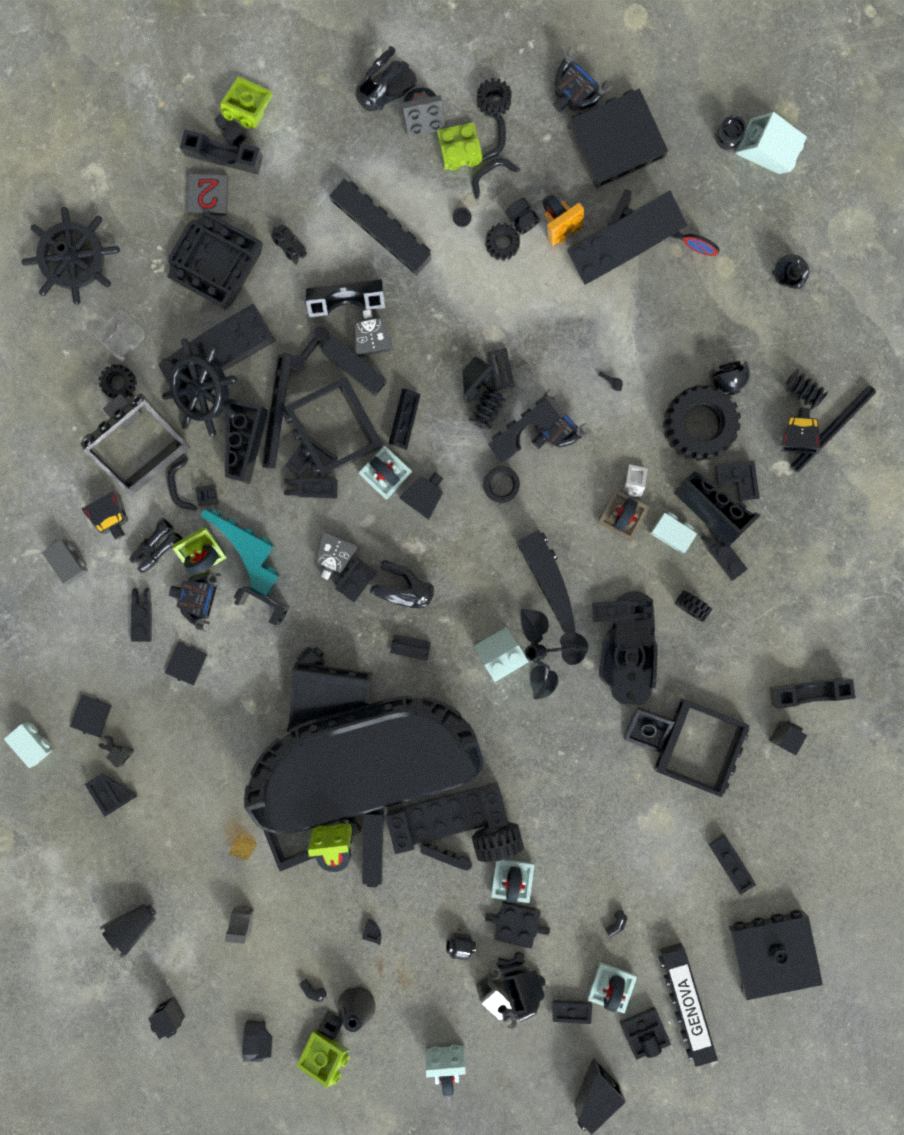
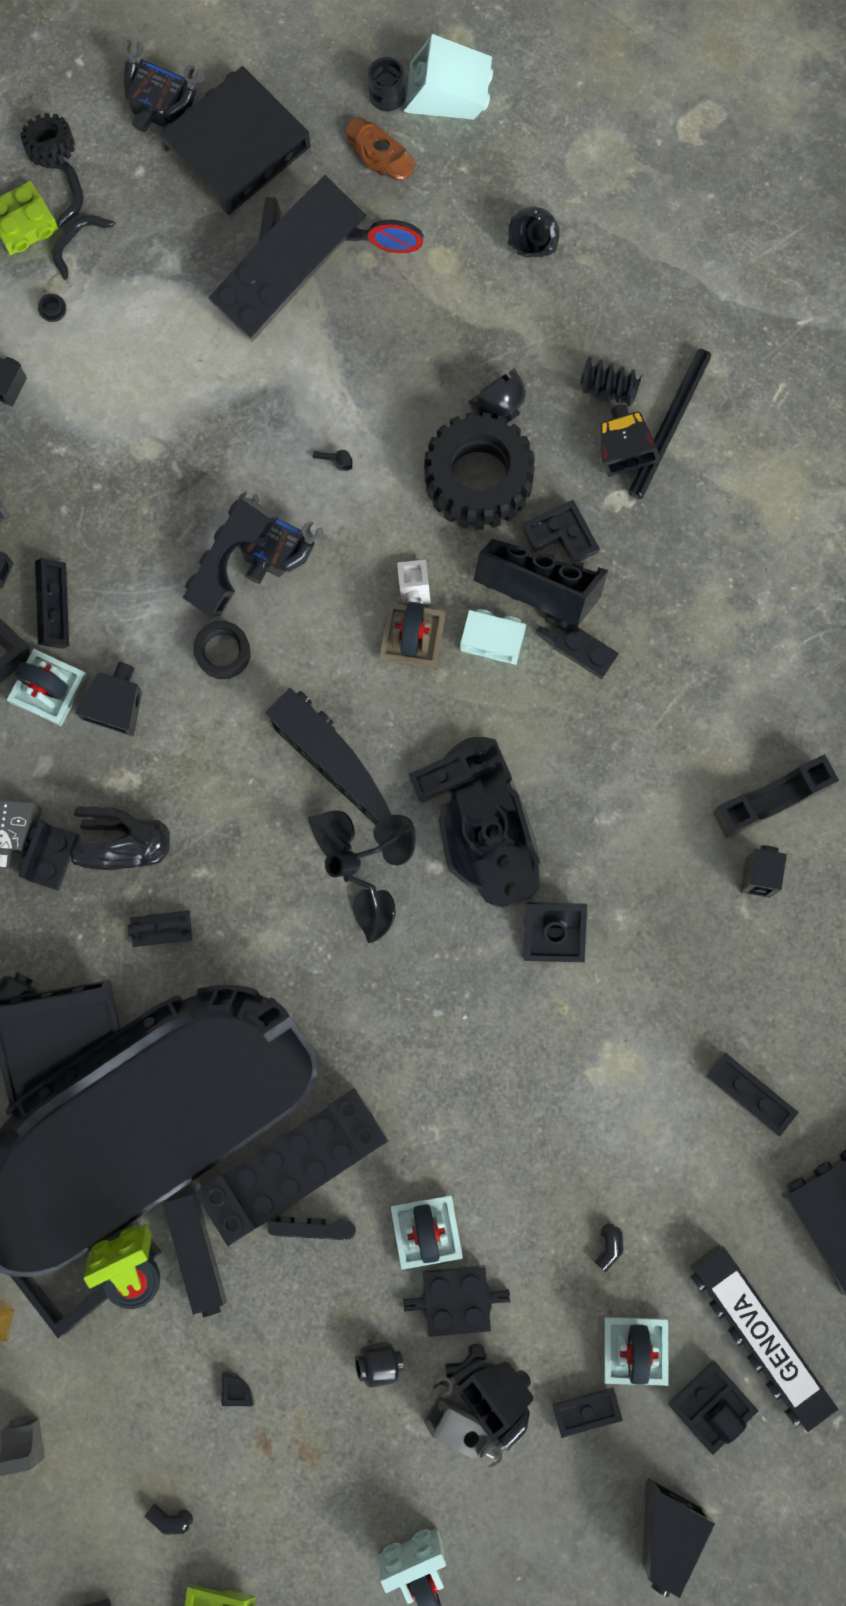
camera: 15 degrees left, 10 degrees down
(330, 1025) = (214, 1568): black slope -> none
(356, 829) = (158, 1231): black tile -> none
(356, 1008) = (246, 1522): black cone -> none
(474, 376) = (135, 512): black slope -> none
(487, 408) = (166, 550): black piece -> none
(497, 843) = (381, 1175): black tyre -> none
(501, 654) = (298, 892): light aqua slope -> none
(504, 385) = (183, 512): black tile -> none
(505, 230) = (119, 306): black tyre -> none
(522, 216) = (135, 278): black wheel -> none
(562, 219) = (192, 264): light orange plate -> none
(693, 606) = (556, 728): black tyre -> none
(716, 188) = (394, 160): none -> dark orange piece
(729, 764) = (694, 921): black window -> none

